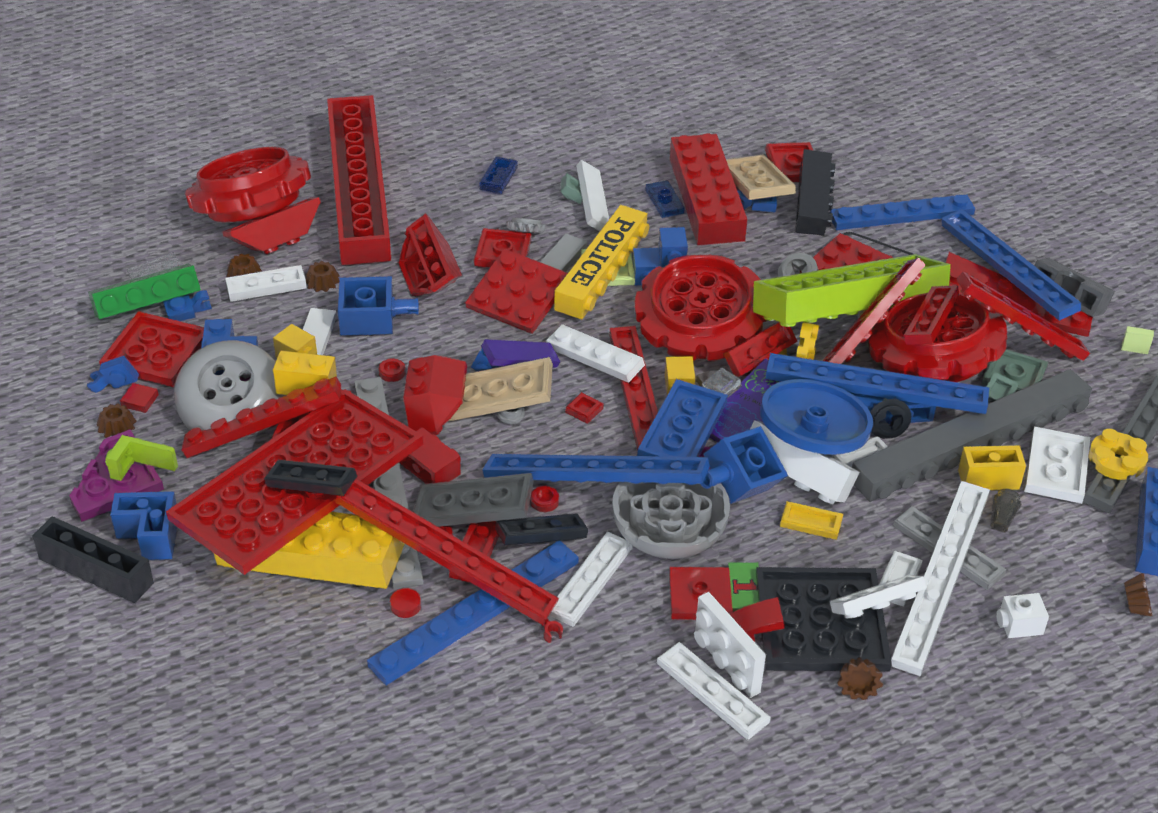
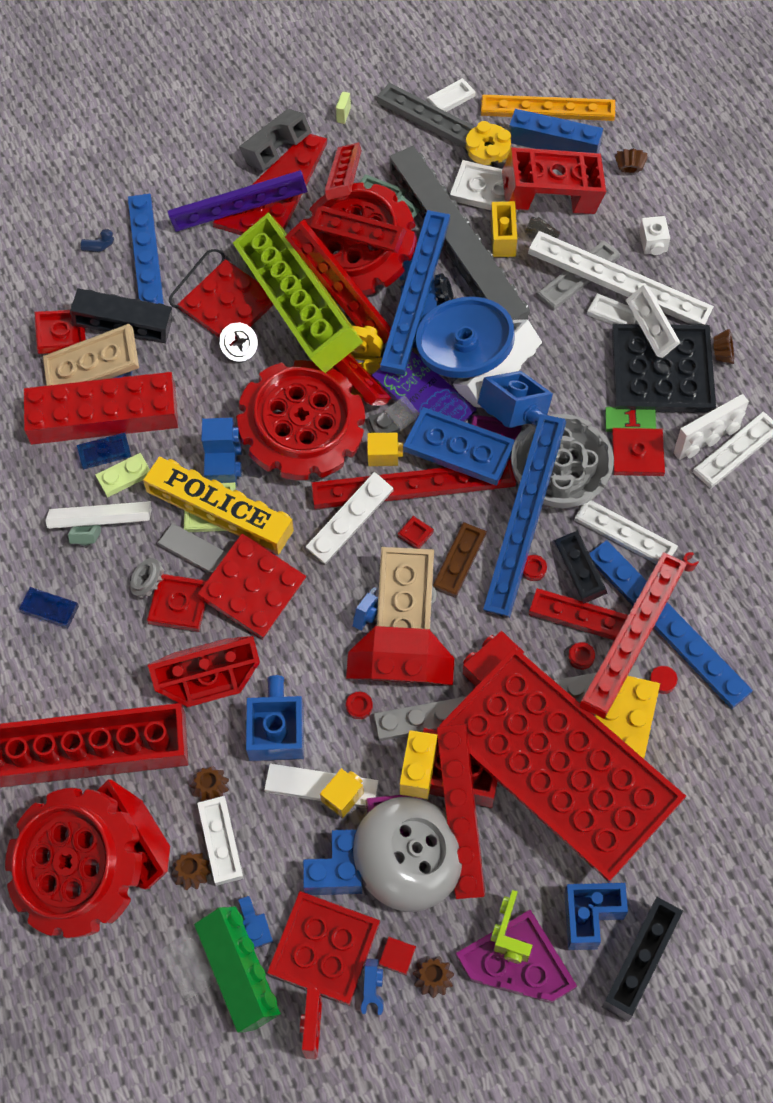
camera: 85 degrees left, 20 degrees up
(82, 330) = (310, 1023): none -> red plate
(310, 477) = (581, 740): black tile -> none
(475, 500) = (555, 619): dark grey tile -> none
(514, 352) = (357, 580): dark purple tile -> none
(551, 439) = (459, 559): none -> reddish brown tile
(637, 202) = (123, 475): none -> yellowish green plate
(760, 617) = (679, 409): red slope -> none
(811, 520) = (553, 365): yellow tile -> none
(910, 185) = (100, 244): none -> dark blue arm
(970, 254) = (237, 201): none -> dark purple tile
(1011, 265) = (252, 172): blue plate -> none
(1079, 527) = (531, 172): none -> red plate

